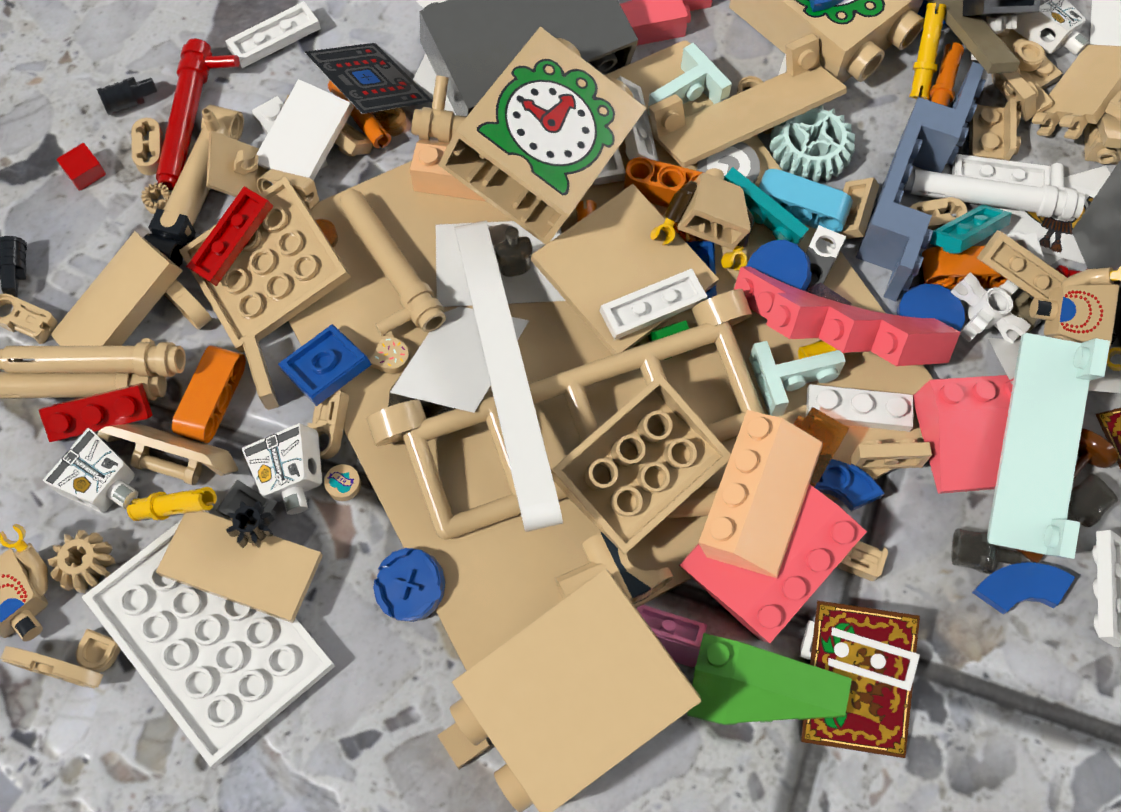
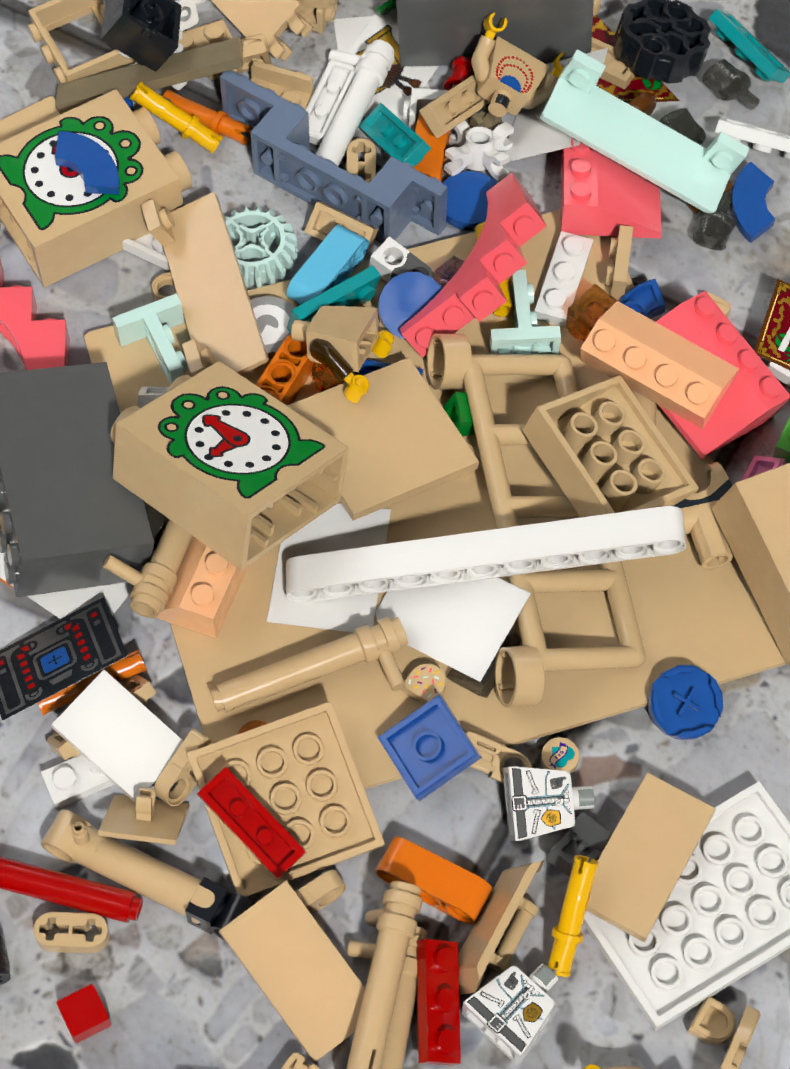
camera: 80 degrees left, 5 degrees down
(68, 564) = (609, 1040): tan gear -> none
(153, 192) = (157, 936): tan bush -> none
(251, 533) = (616, 838): black gear -> none
(260, 373) = (419, 822): tan tile -> none
(513, 253) = (336, 533): clear smoke piece -> none
(652, 304) = (435, 414): white plate -> none
(1030, 55) = (200, 35): tan tile -> none

